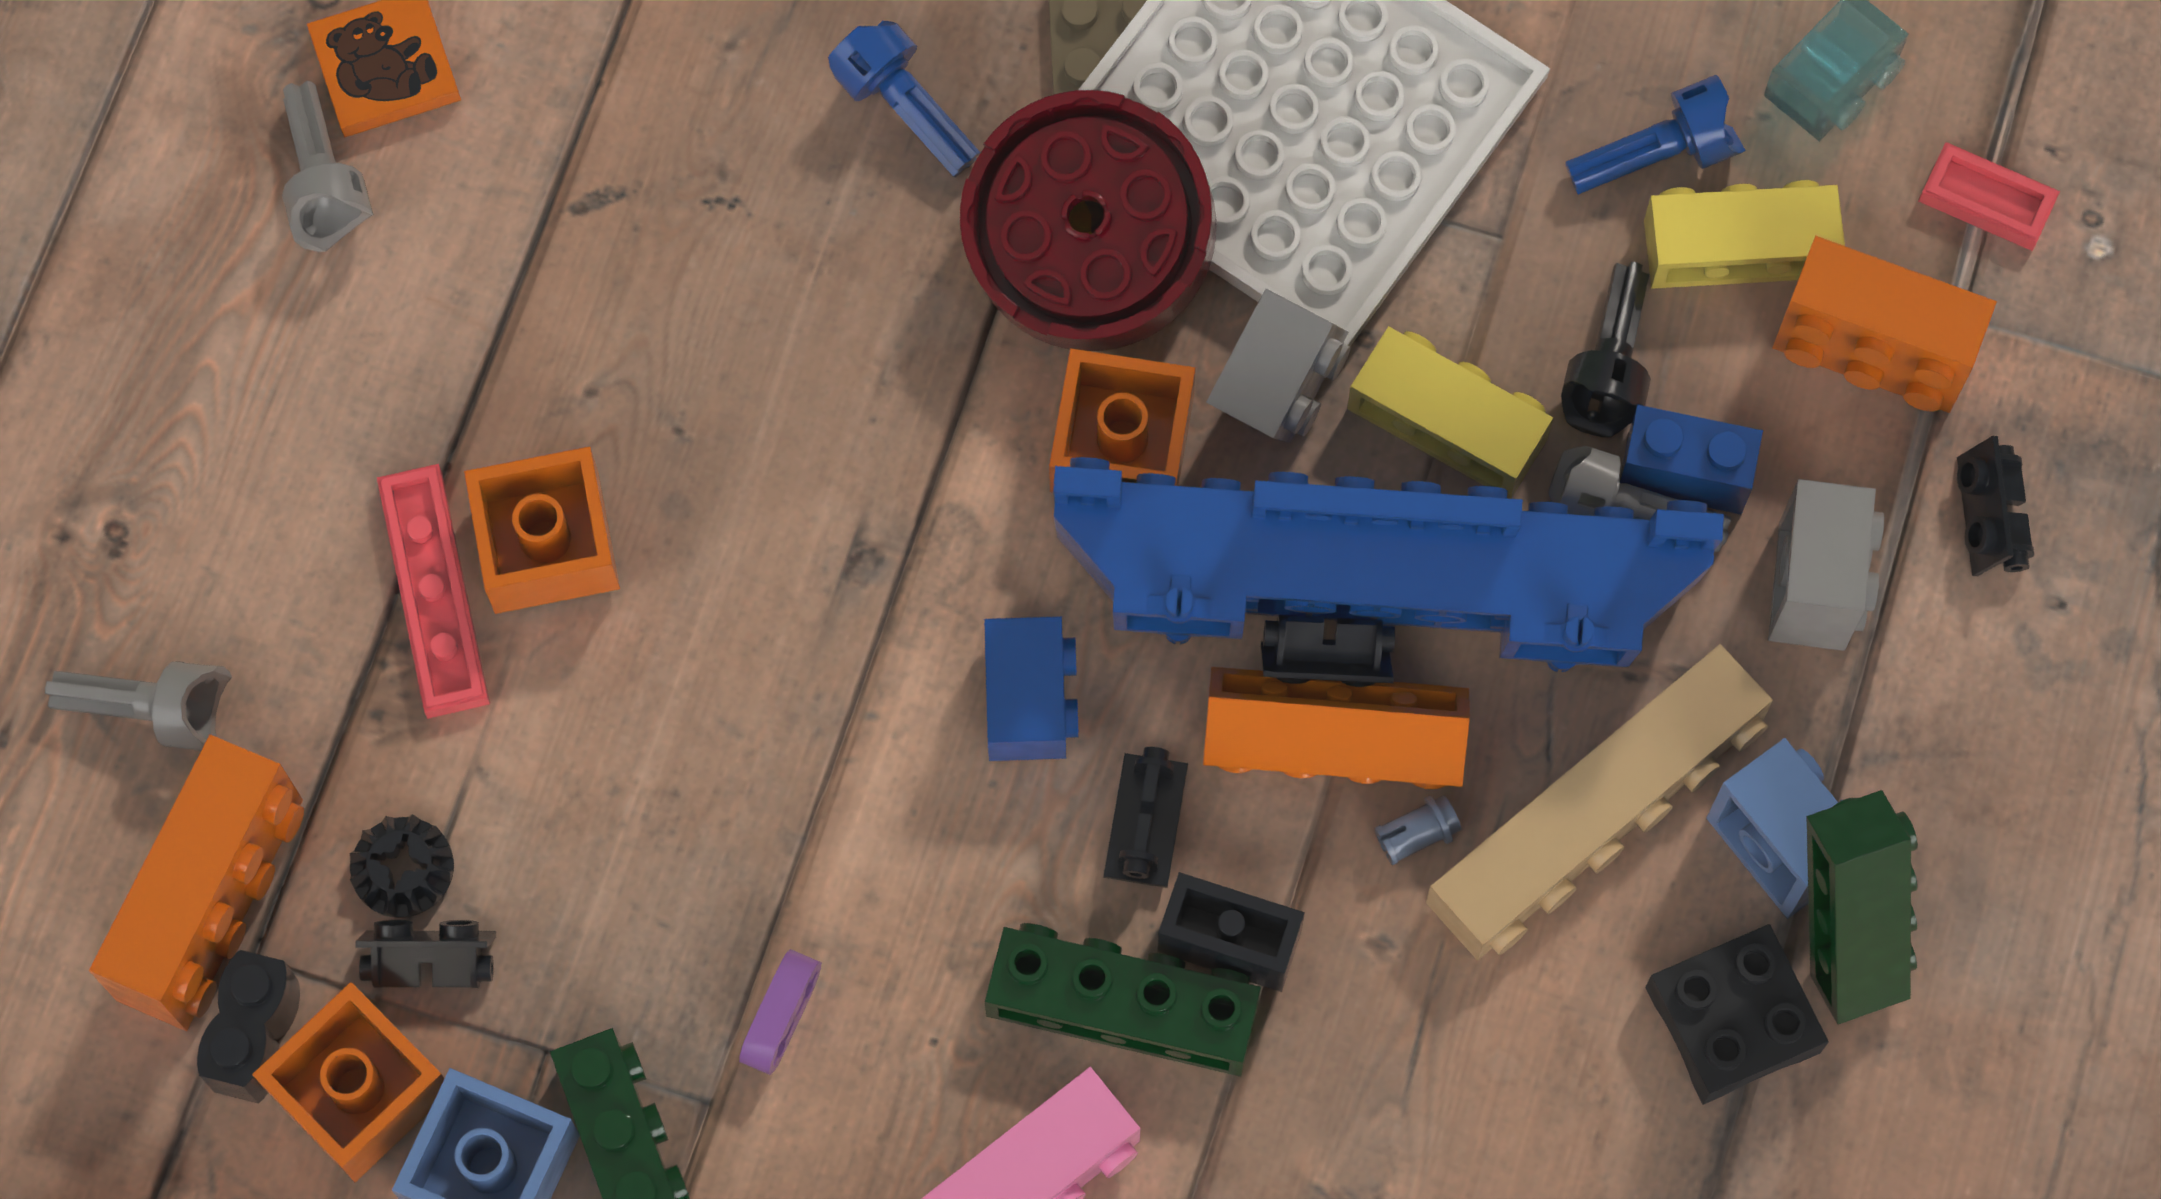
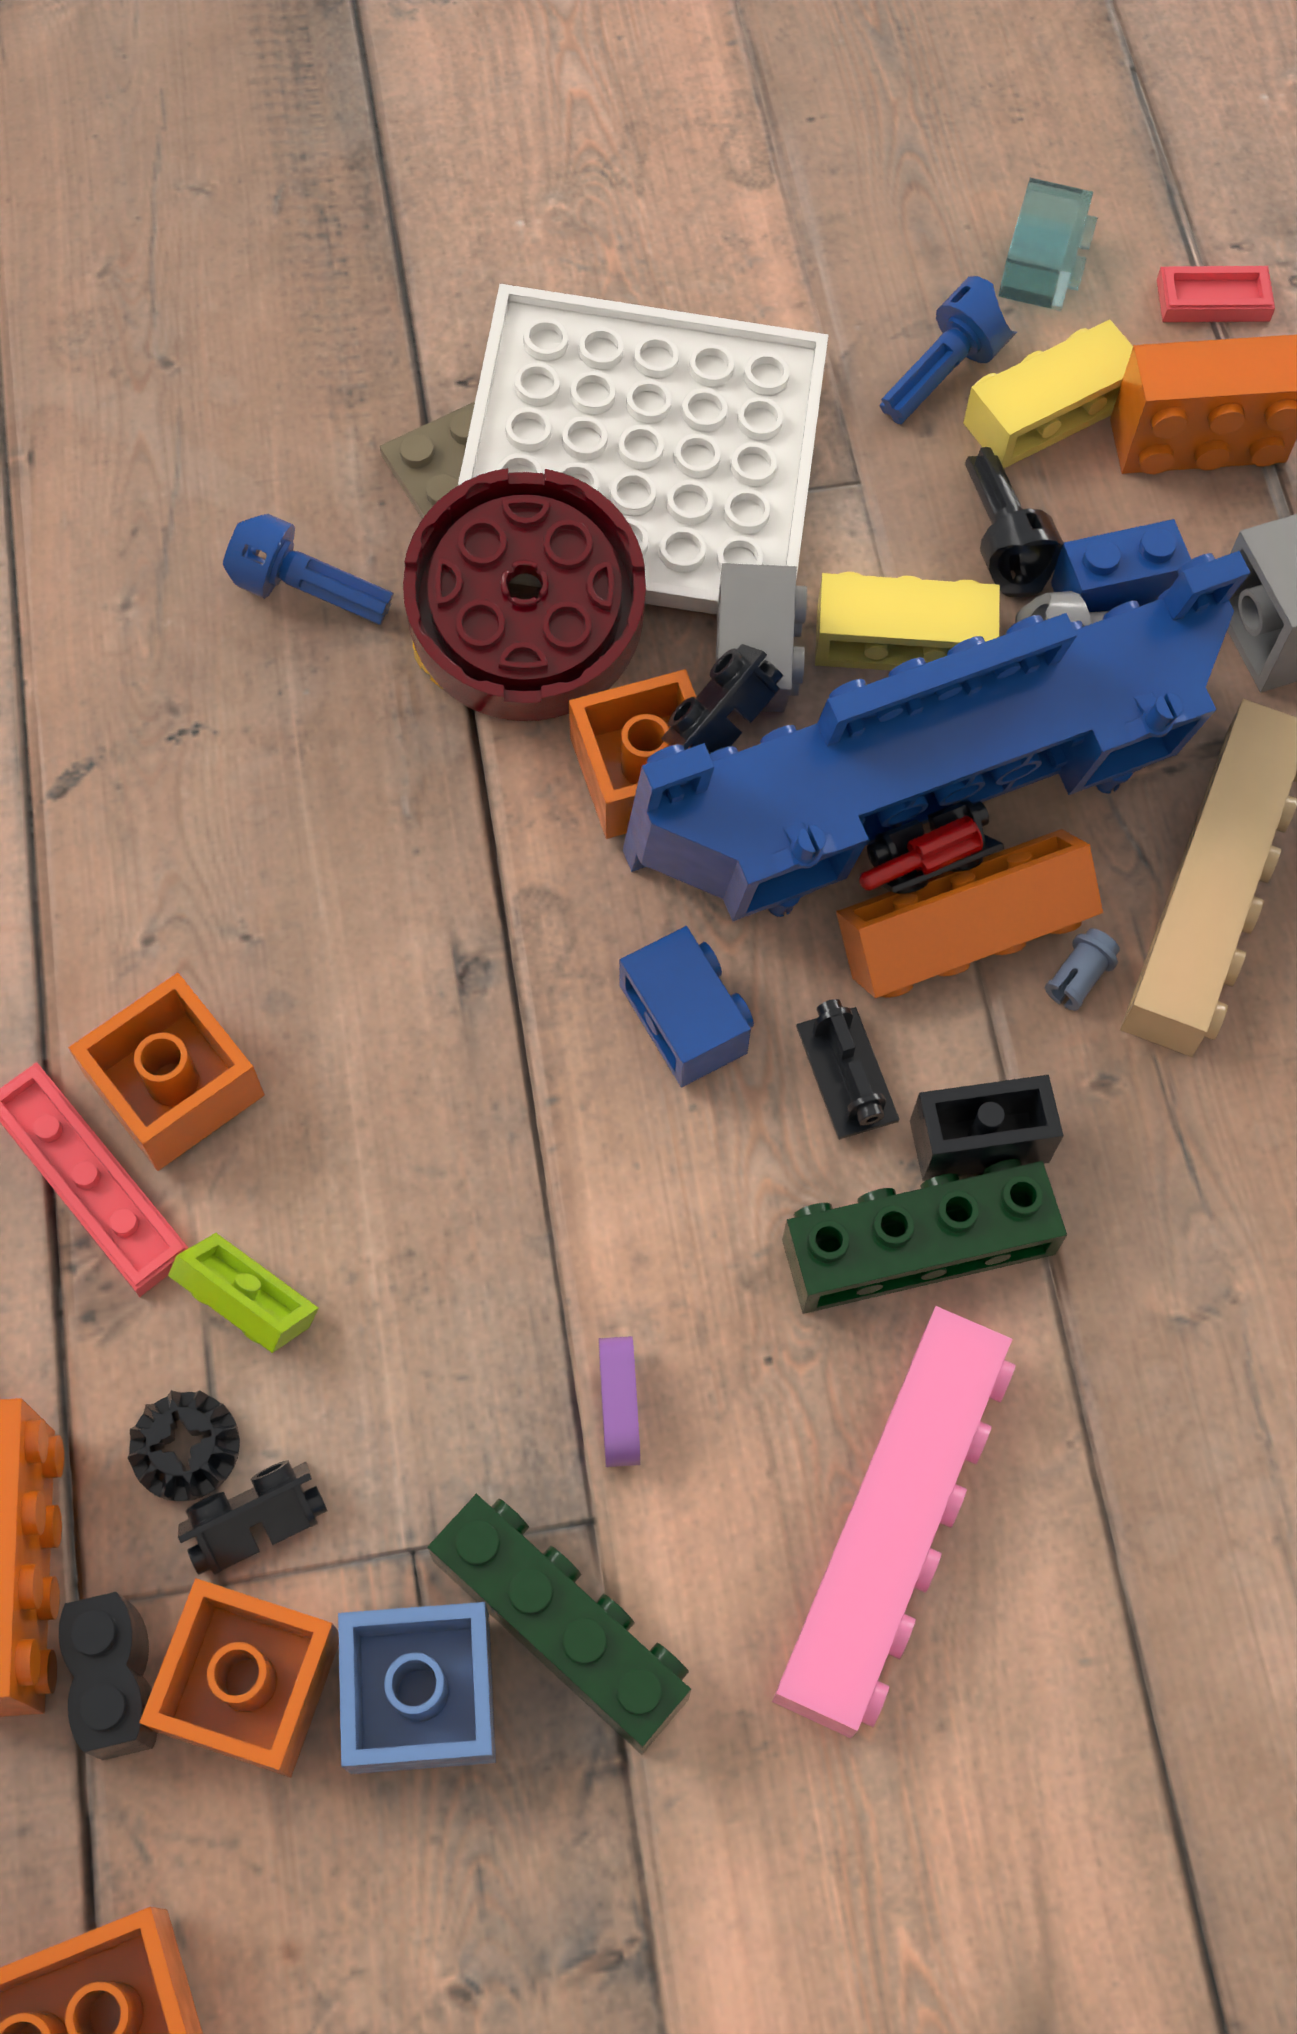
camera: 30 degrees left, 5 degrees down
(513, 758) = (243, 1292): none -> lime plate
(1173, 432) = (734, 685): none -> black hinge
(1314, 655) = (928, 853): none -> red axle

